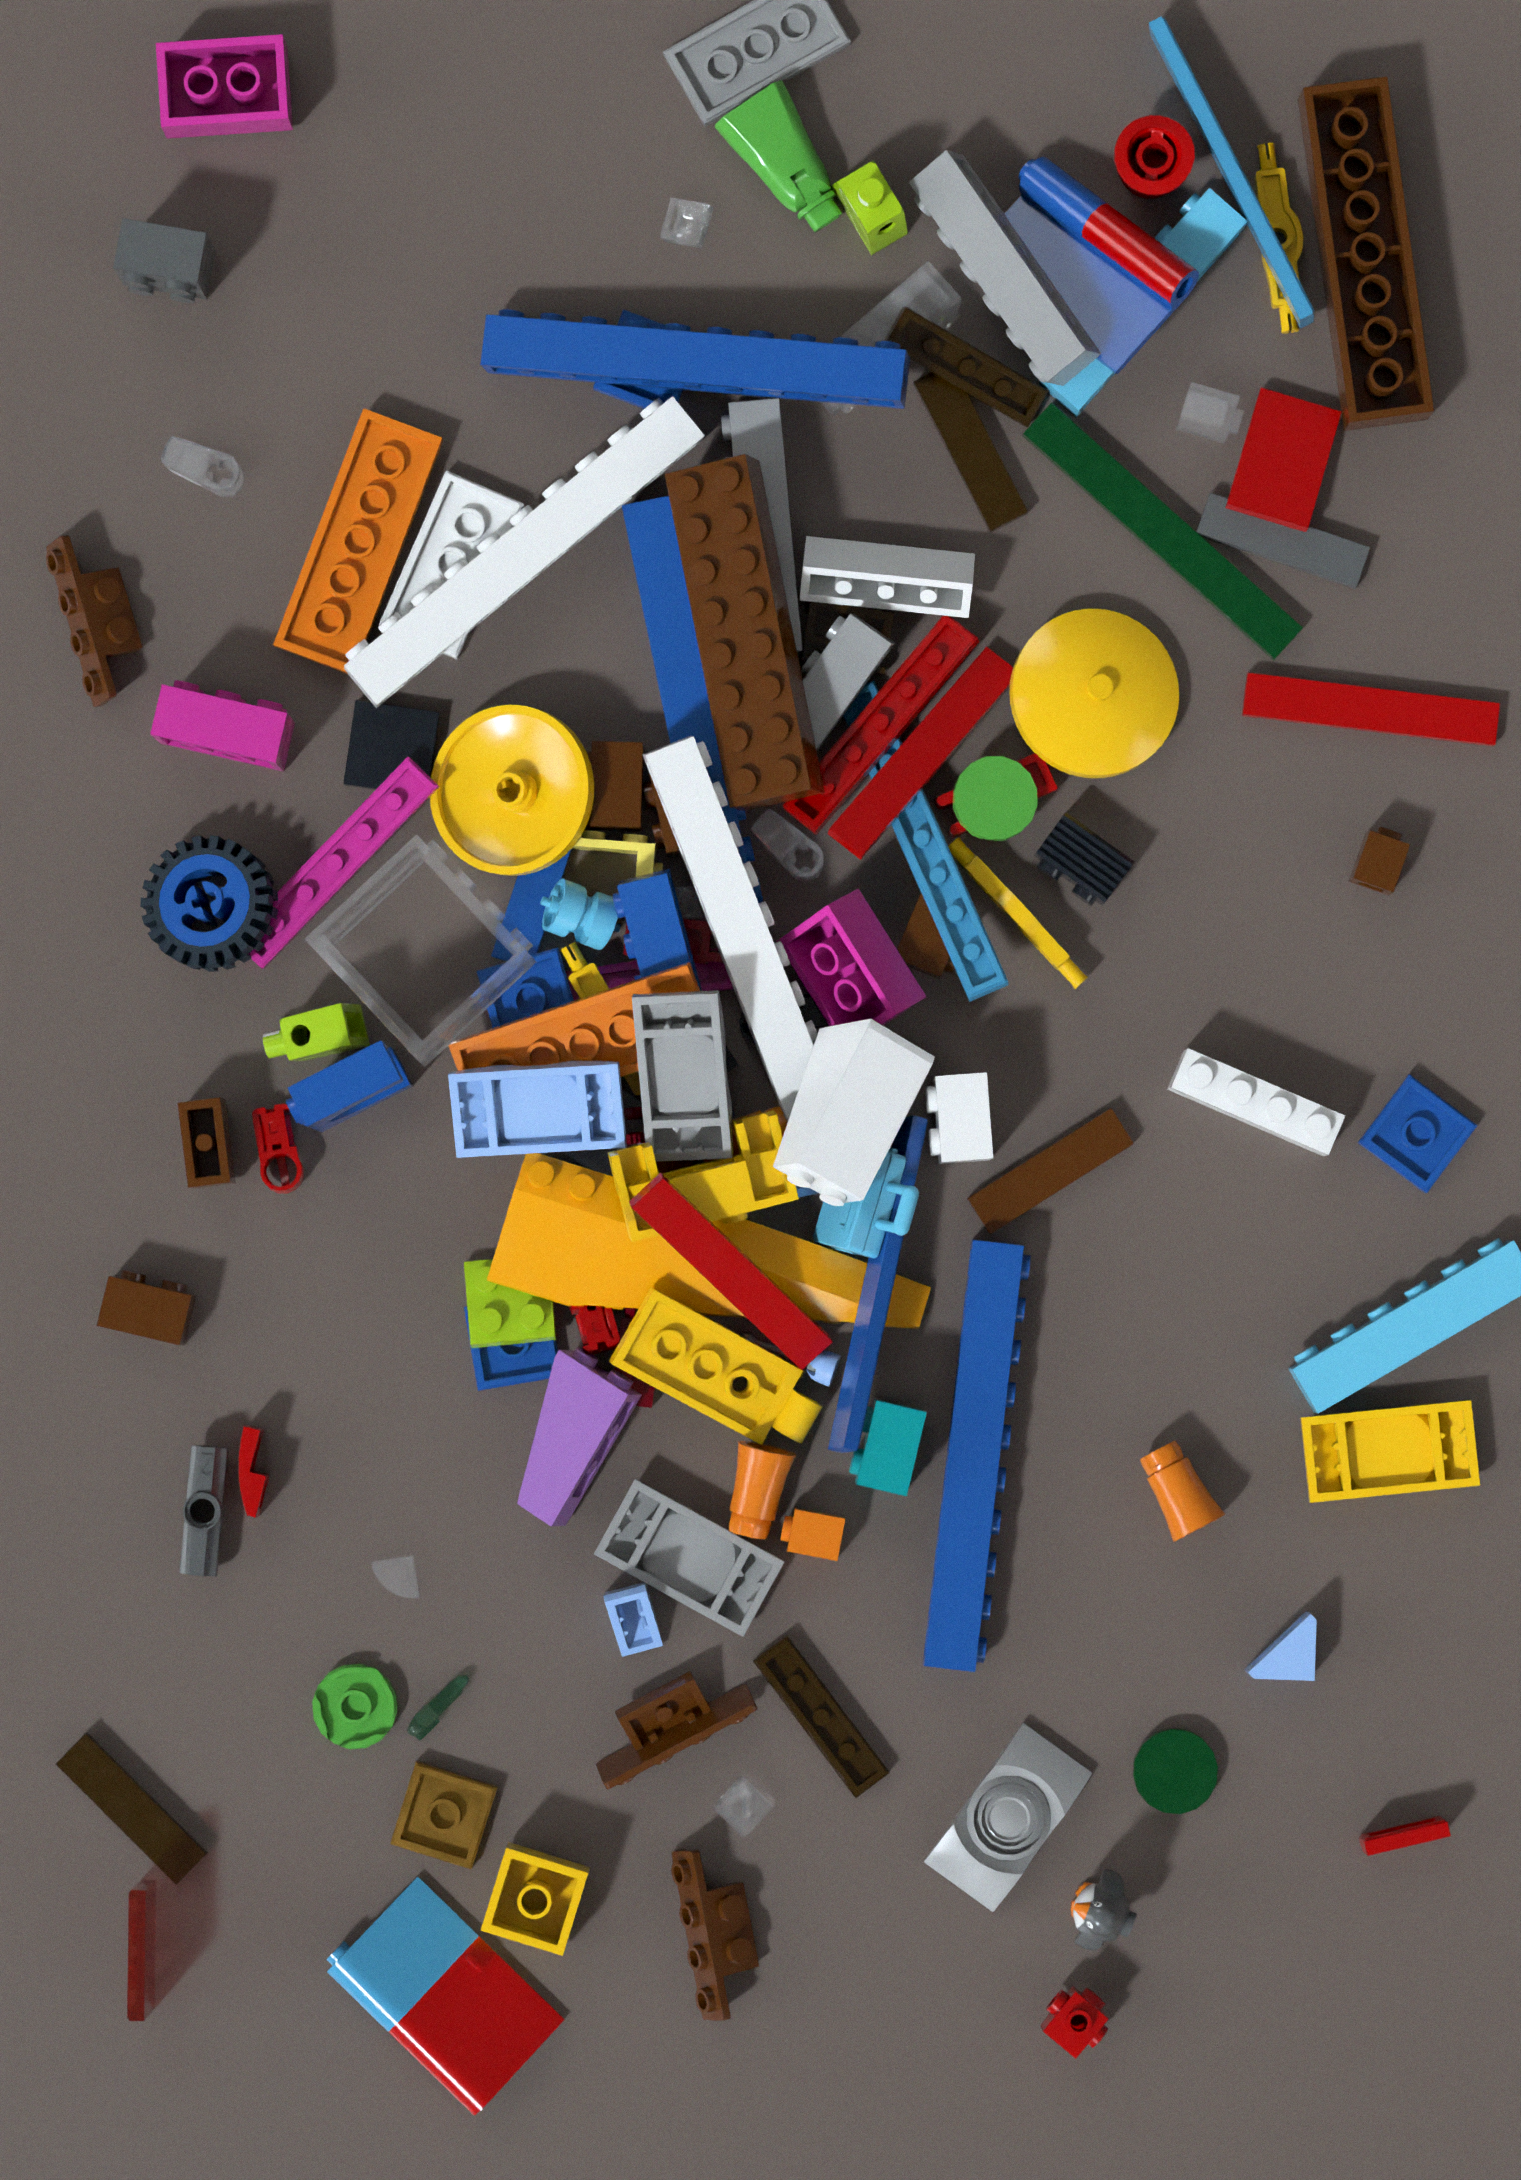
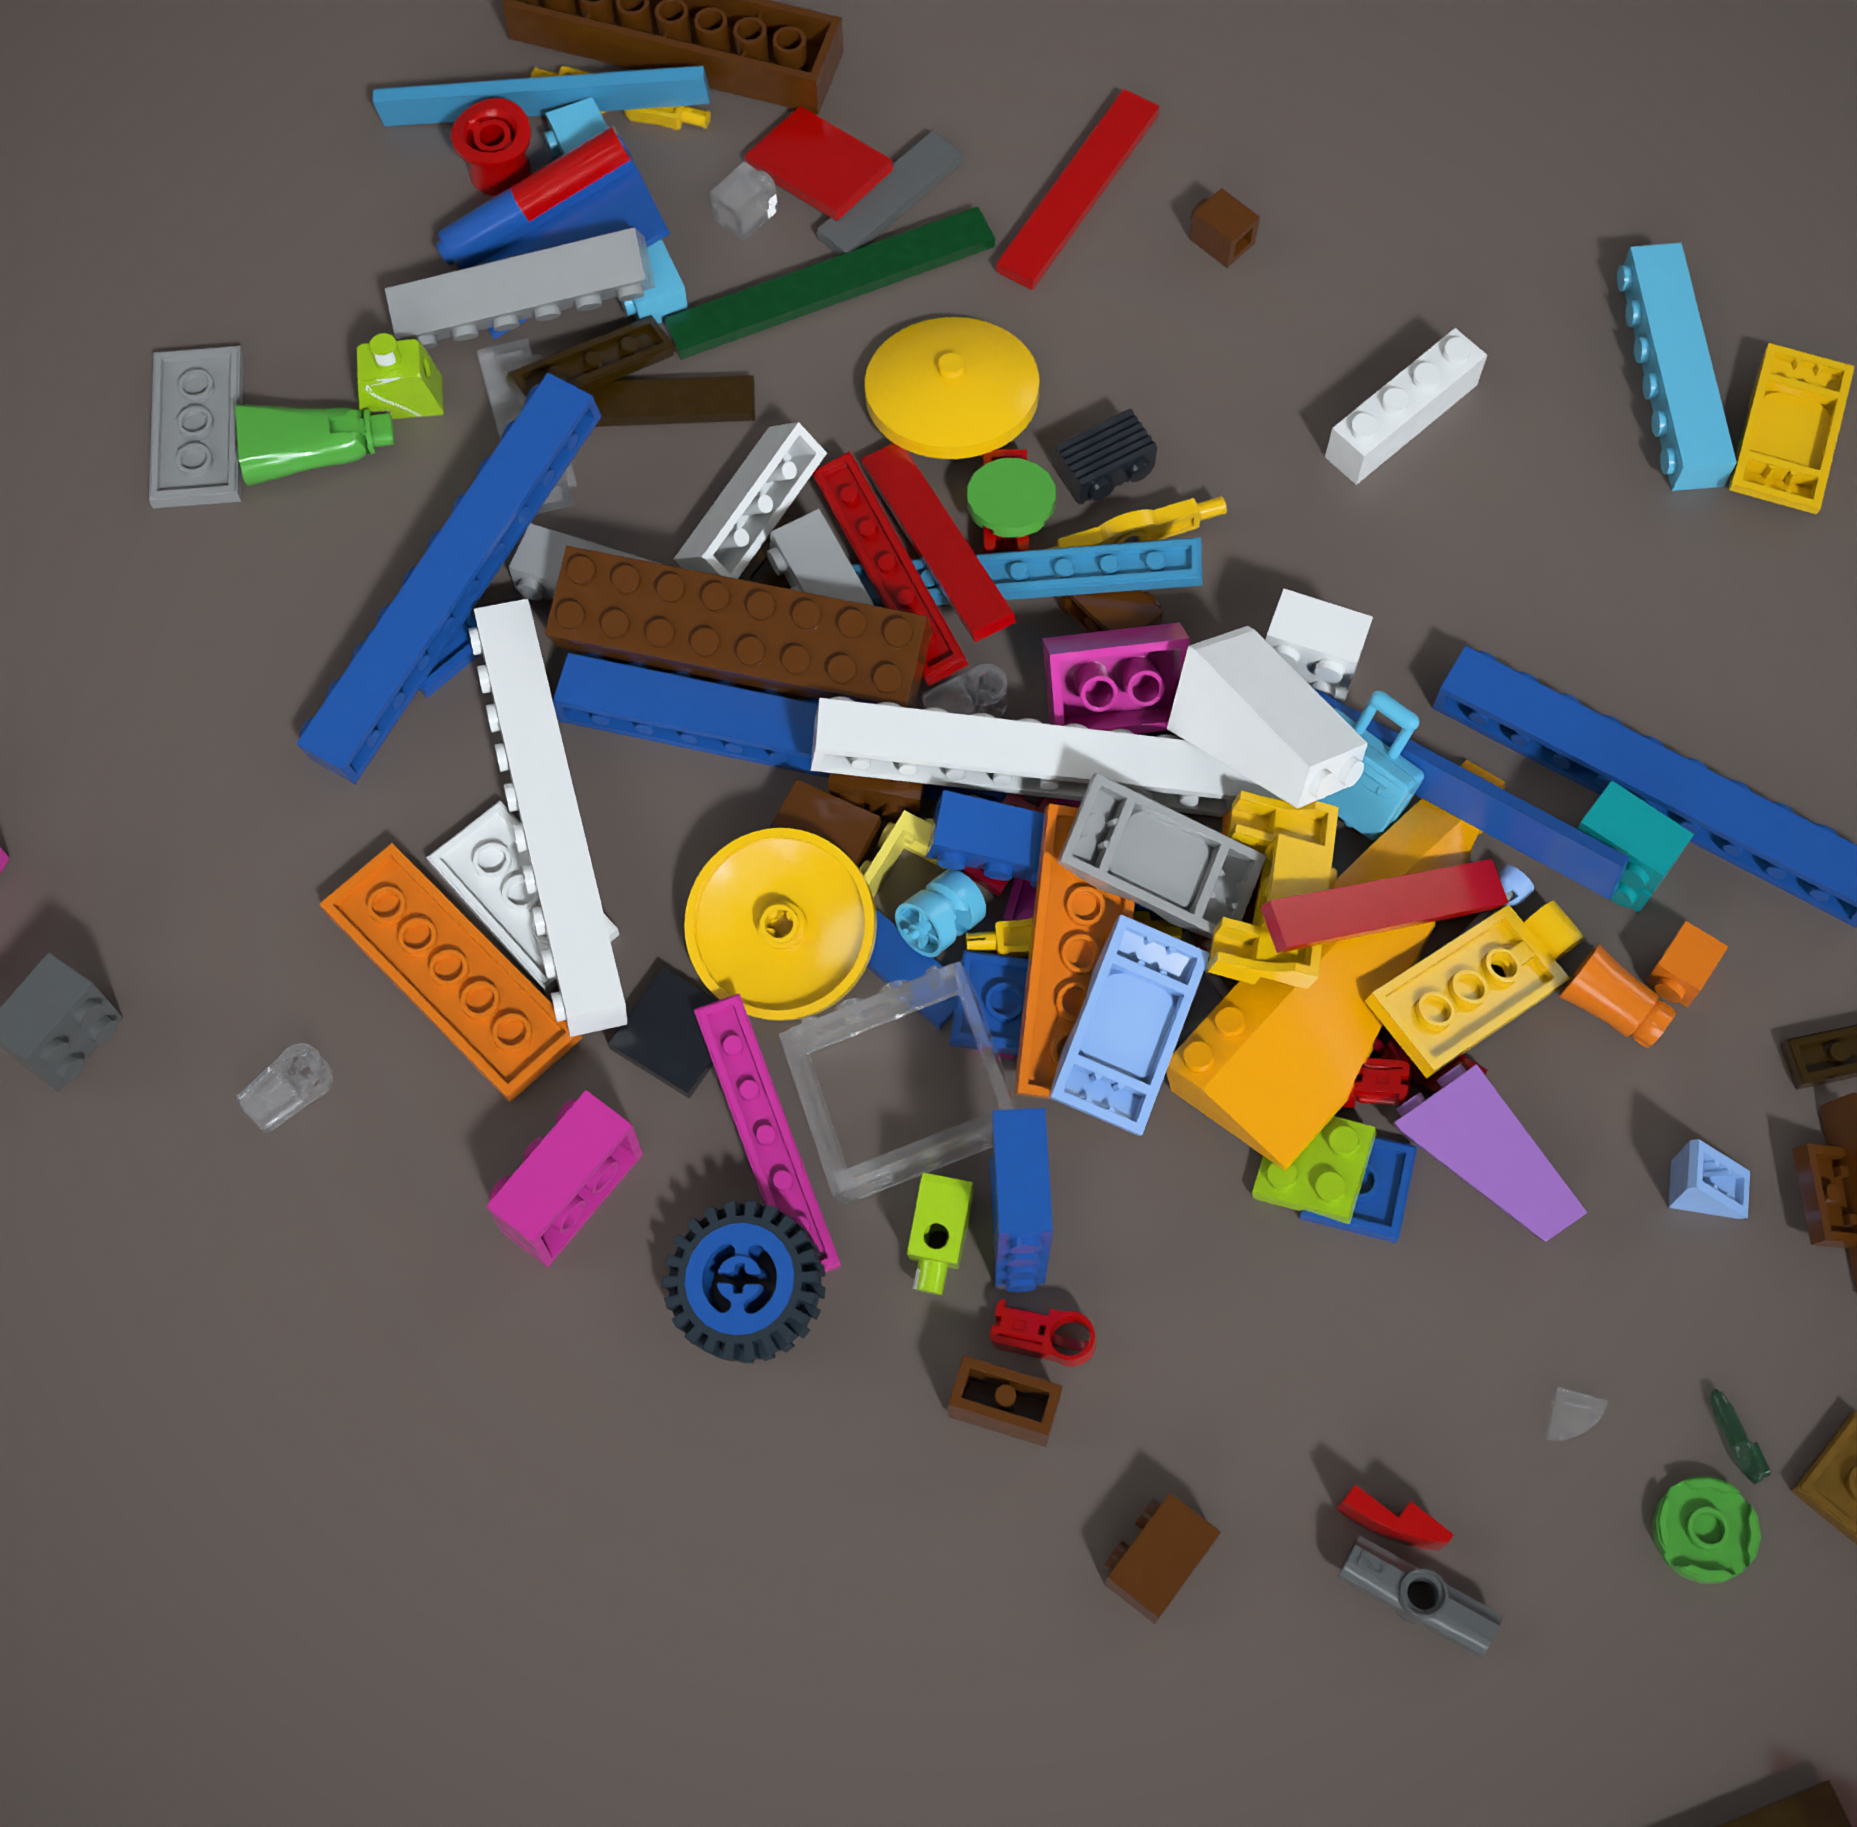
camera: 65 degrees left, 20 degrees down
(96, 615) = (376, 1271): reddish brown bracket -> none
(686, 222) = (318, 545): clear tile -> none
(689, 1557) = (1666, 1098): light grey slope -> none
(1050, 1171) = (1394, 609): reddish brown tile -> none
(1179, 1491) = (1768, 616): orange plant -> none
(1417, 1133) = (1490, 300): blue tile -> none

